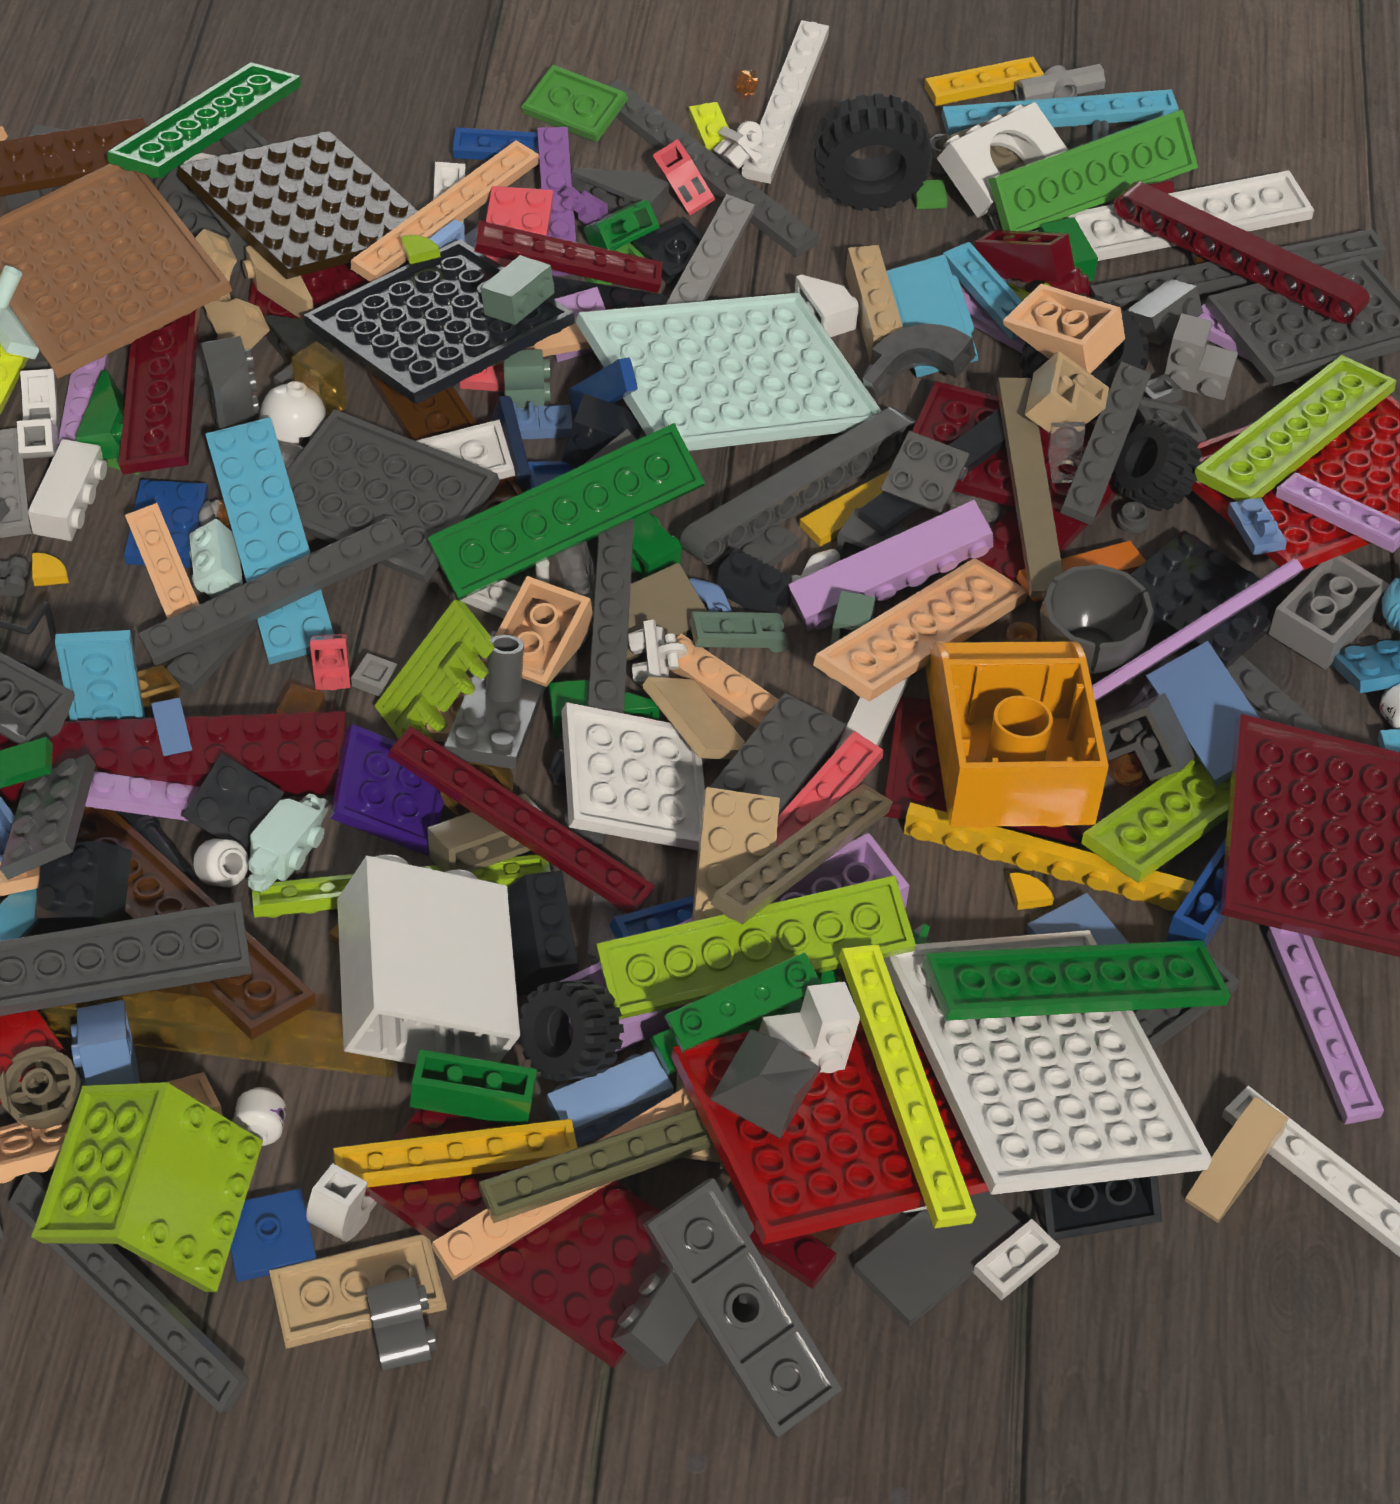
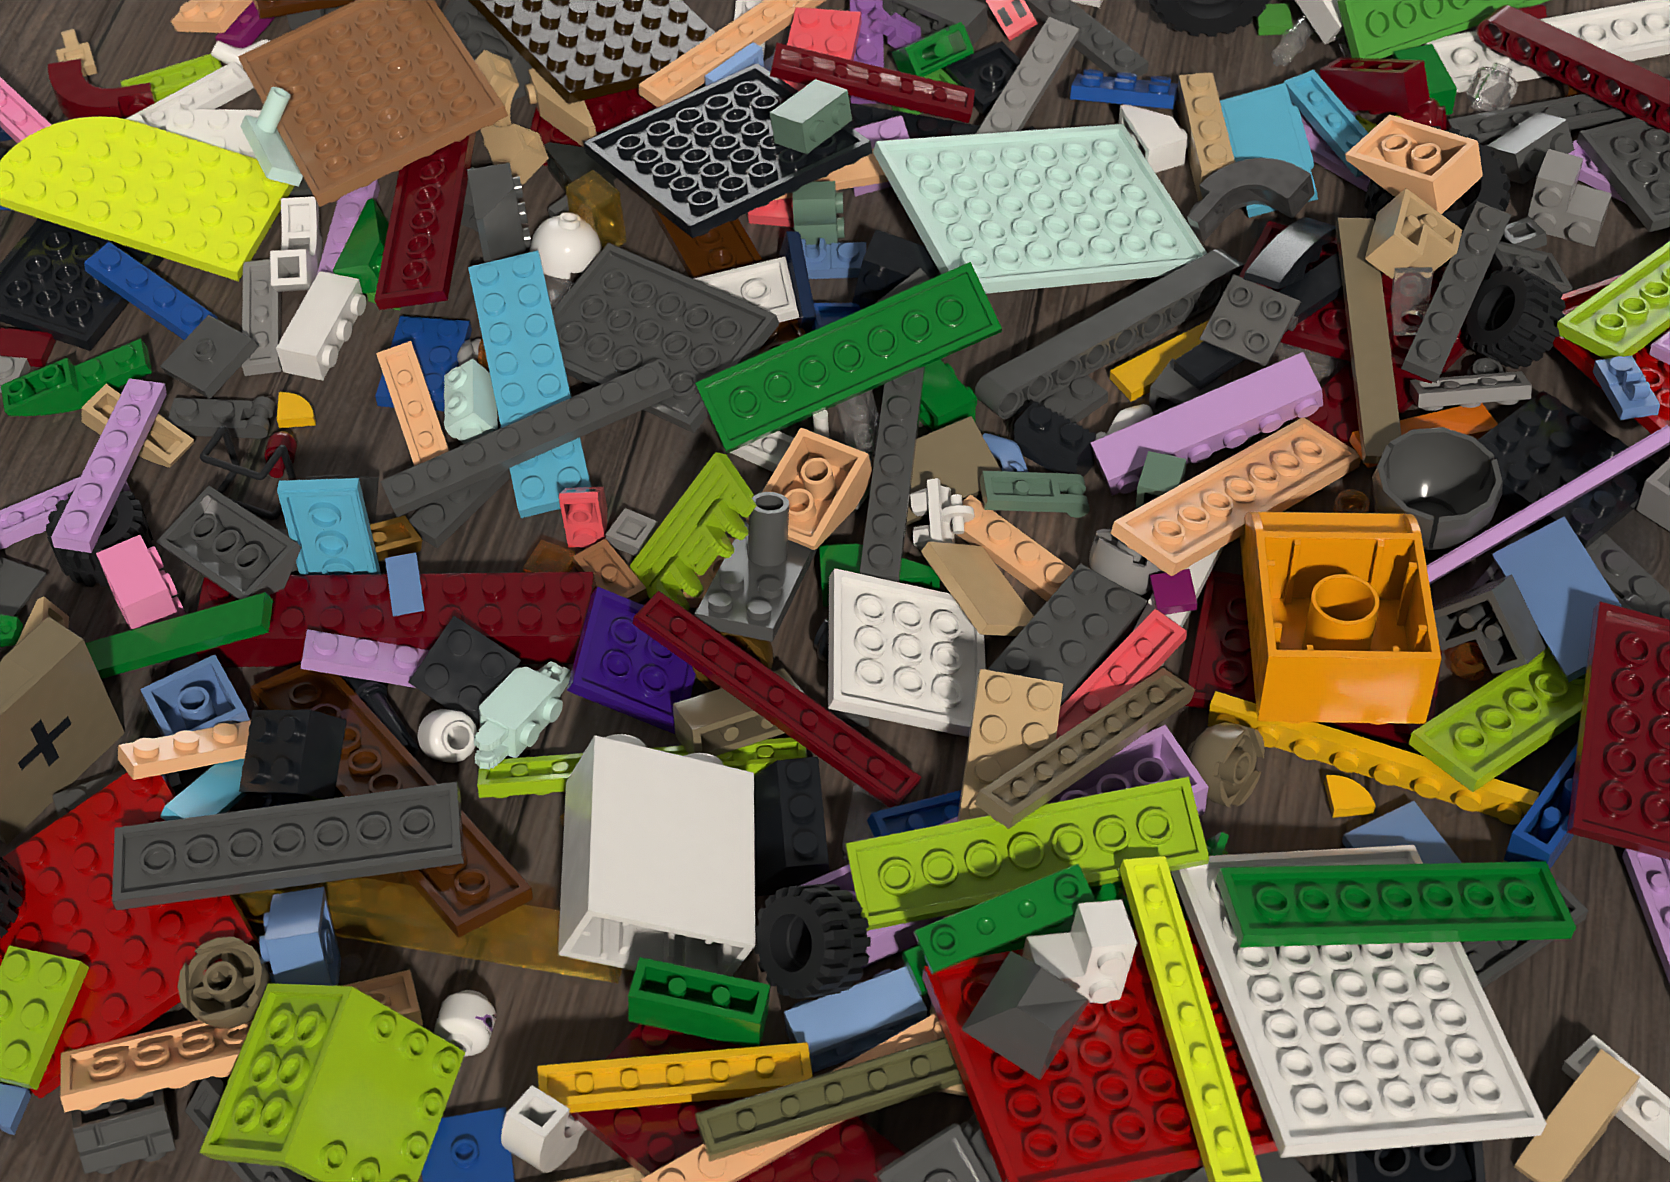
camera: 10 degrees right, 0 degrees up
(32, 605) = (273, 443): none -> dark red cylinder
(48, 817) = (260, 680): dark grey plate -> none
(357, 709) = (610, 571): none -> medium nougat plate
(419, 248) = (712, 72): lime tile -> none
(607, 384) = (903, 219): blue tile -> none
(798, 261) = (1124, 89): none -> blue plate
(823, 692) = (1121, 564): none -> light grey cylinder
(869, 717) = (1174, 592): none -> magenta tile
(923, 863) = (1227, 760): none -> dark tan cylinder
(948, 215) = (1292, 41): none -> clear axle
(957, 410) = (1289, 253): none -> slope
(1121, 531) = (1471, 390): none -> light grey plate
(1128, 257) = (1492, 88): none -> clear head

